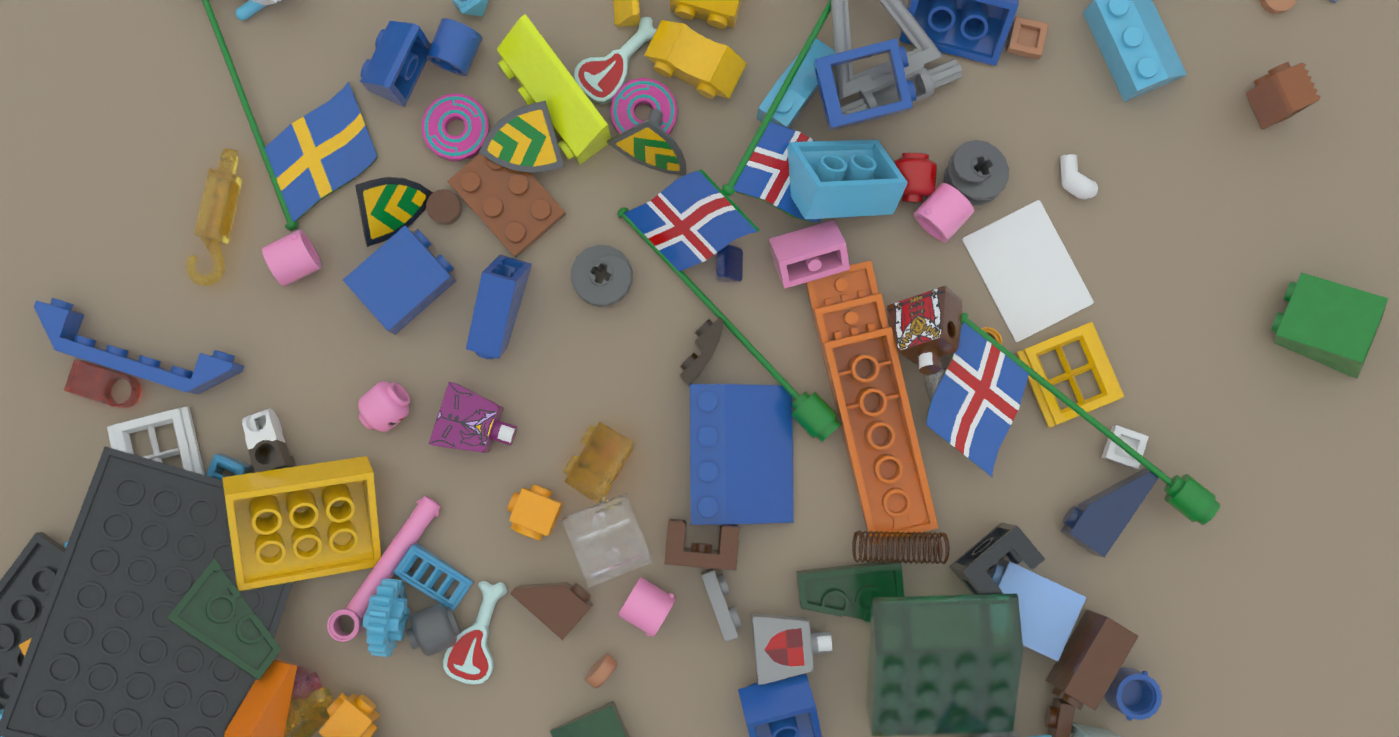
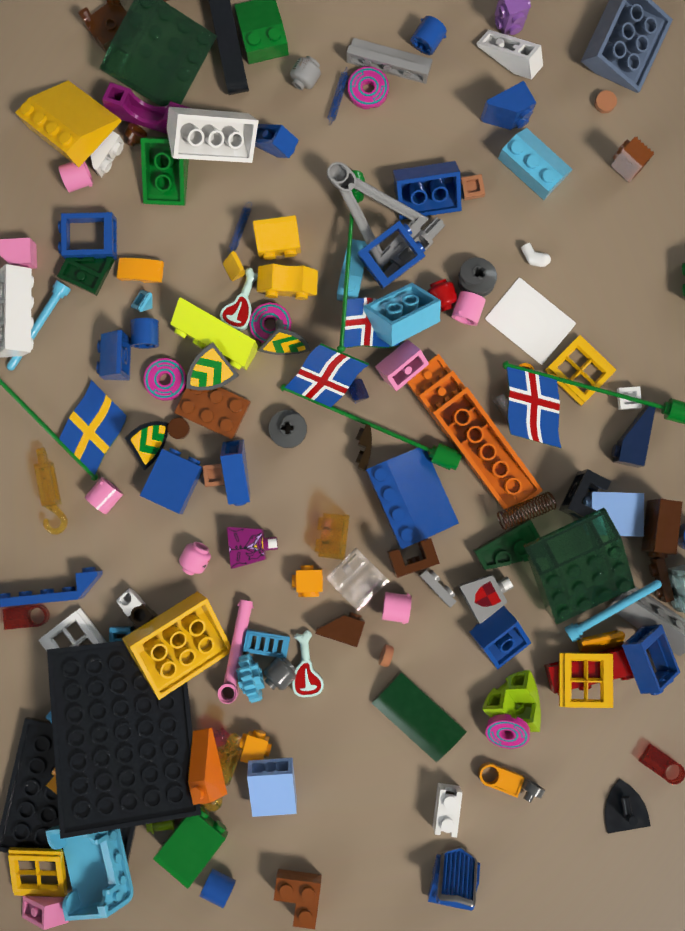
camera: 20 degrees left, 0 degrees up
(225, 623) = (158, 720): dark green wing -> none
(462, 296) = (213, 475): none -> nougat plate
(927, 327) = (487, 378): torso -> none

